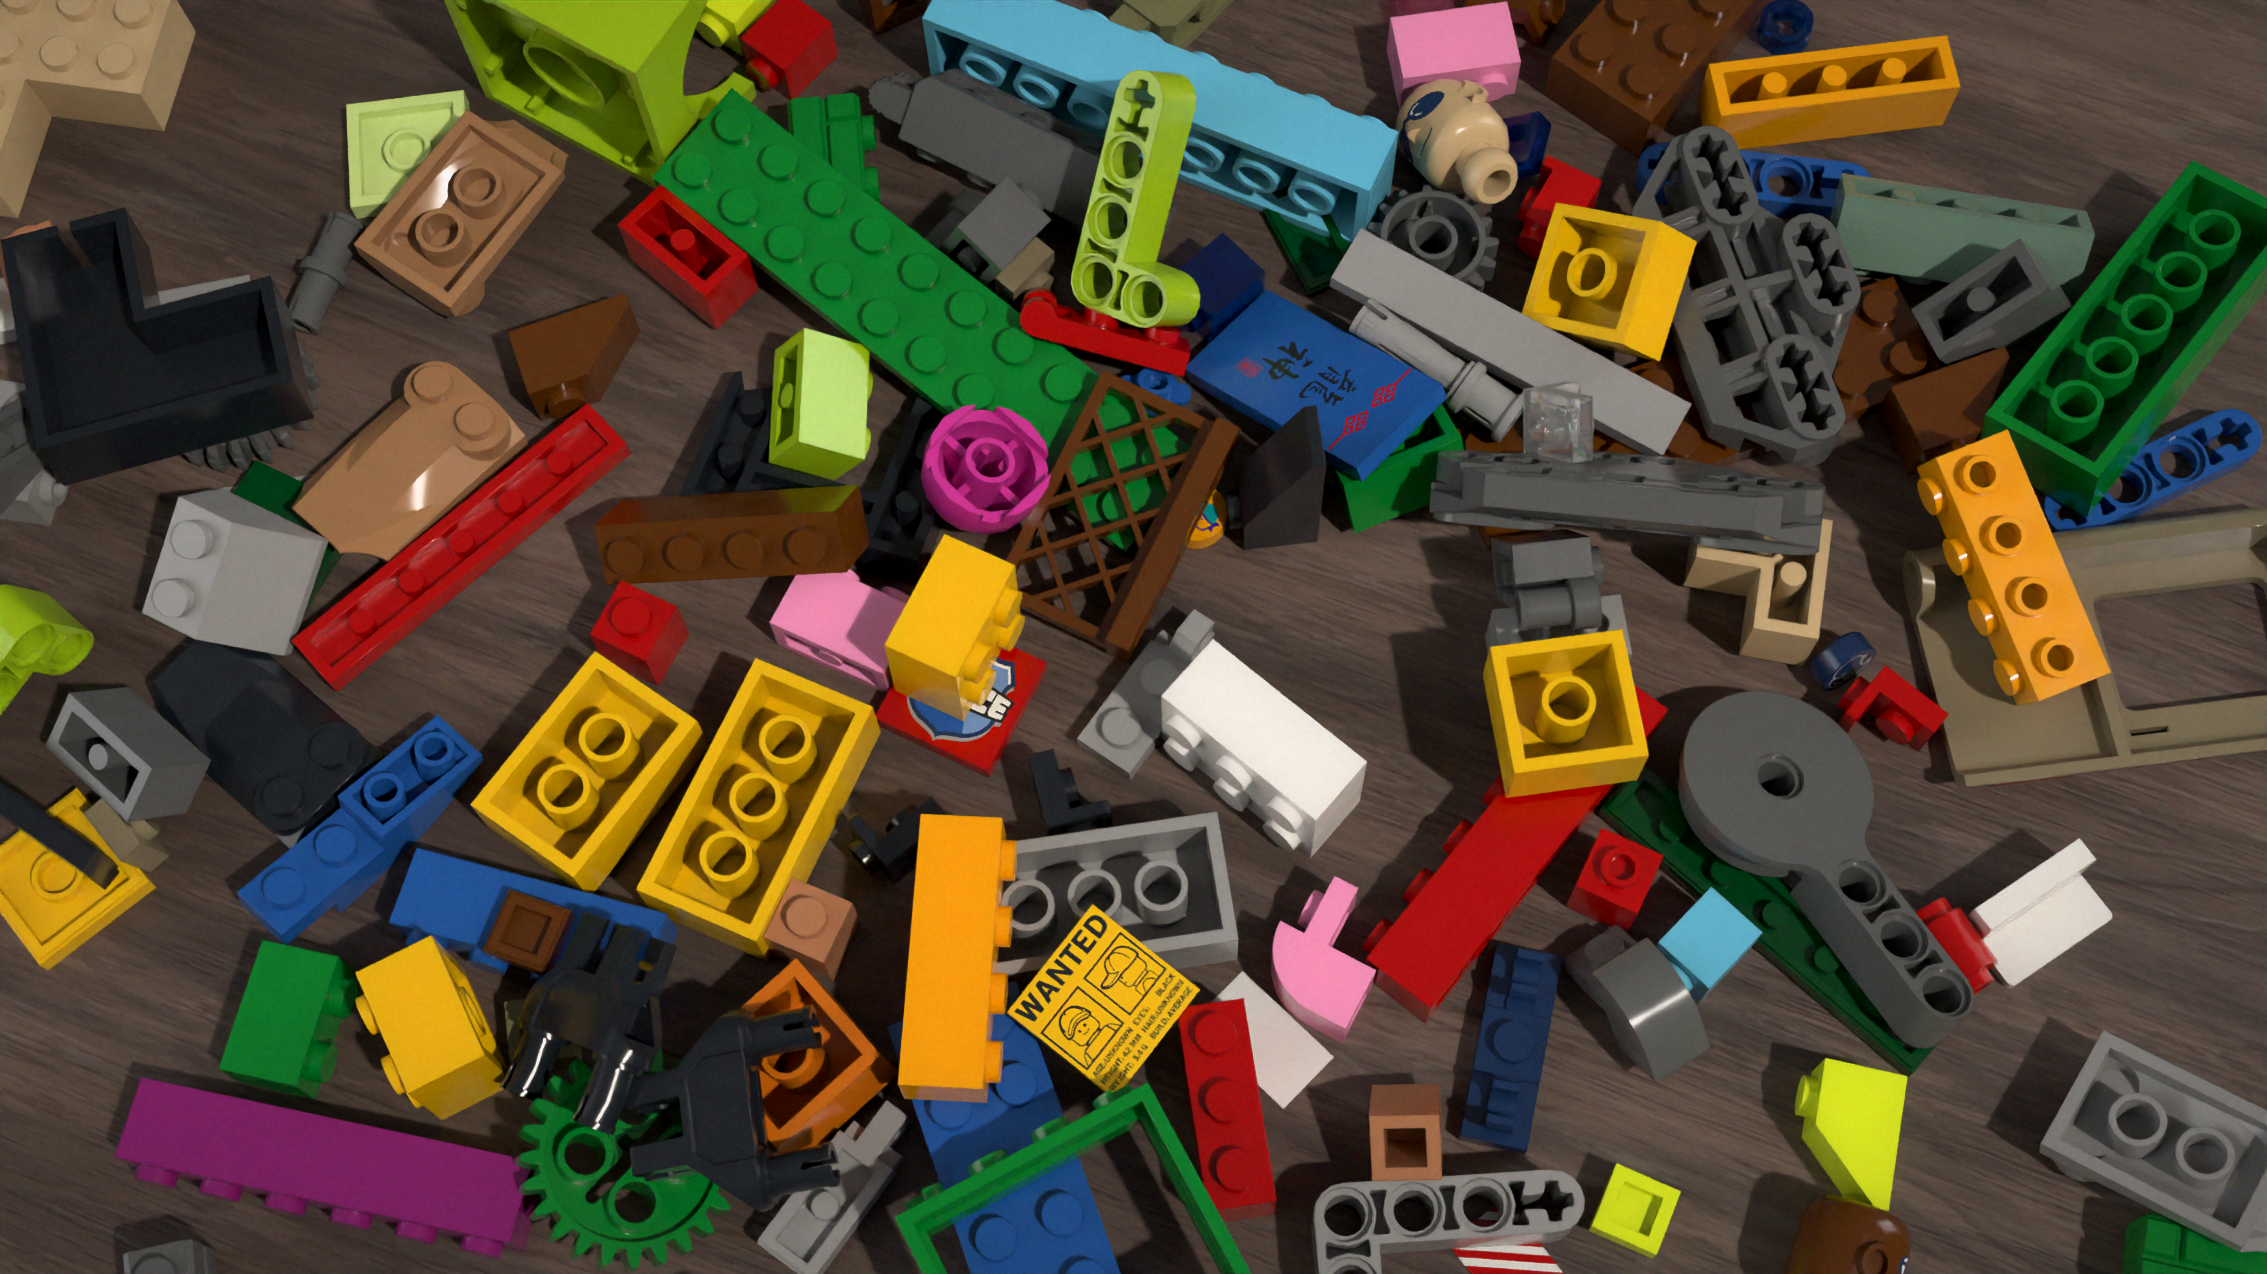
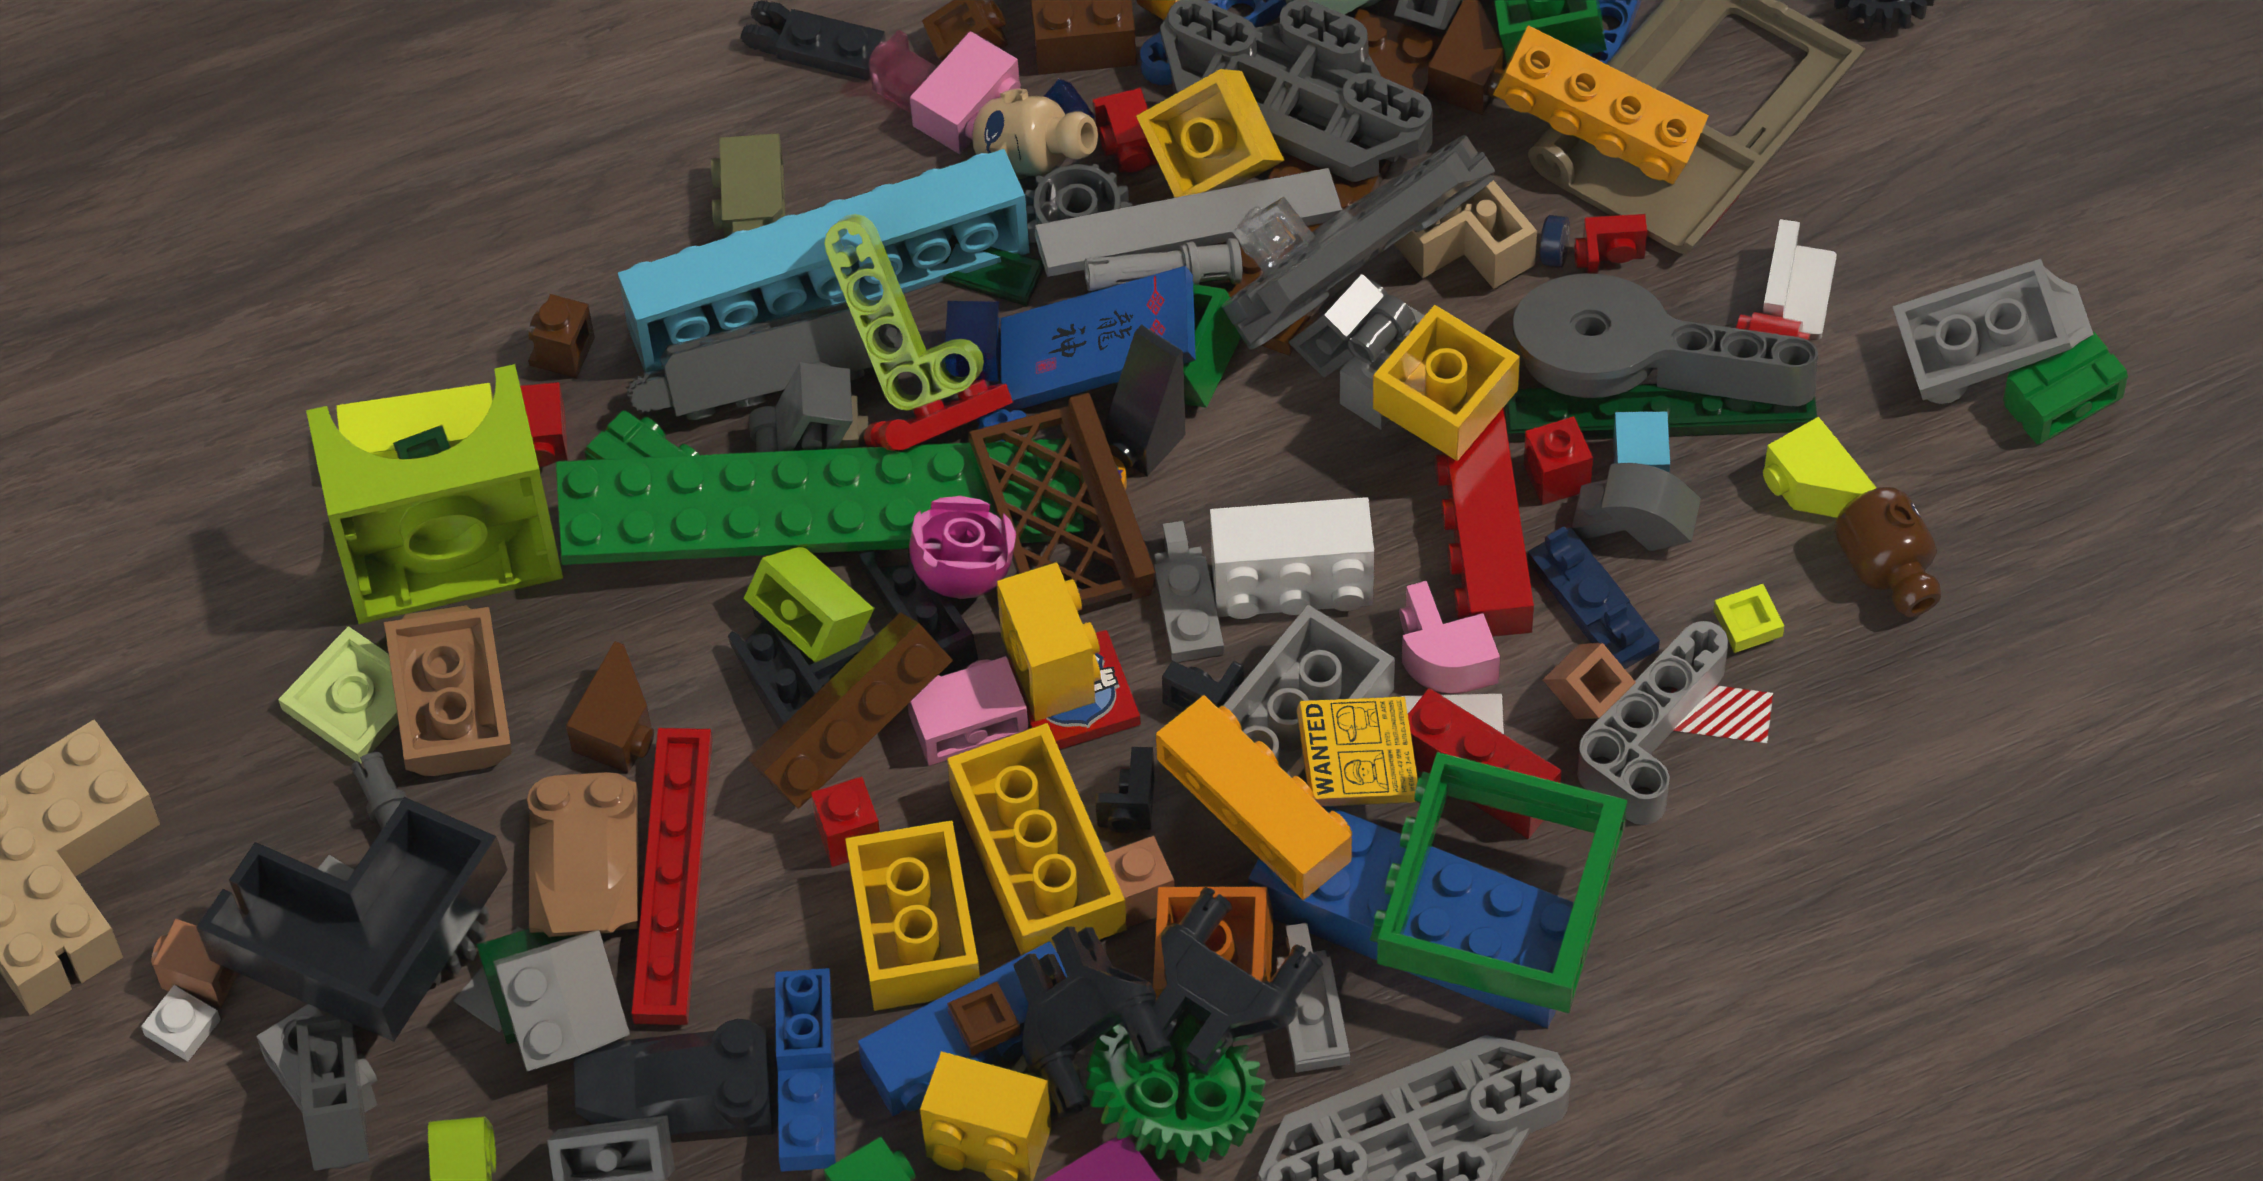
camera: 45 degrees left, 10 degrees down
(688, 256) = (626, 591): red brick -> none

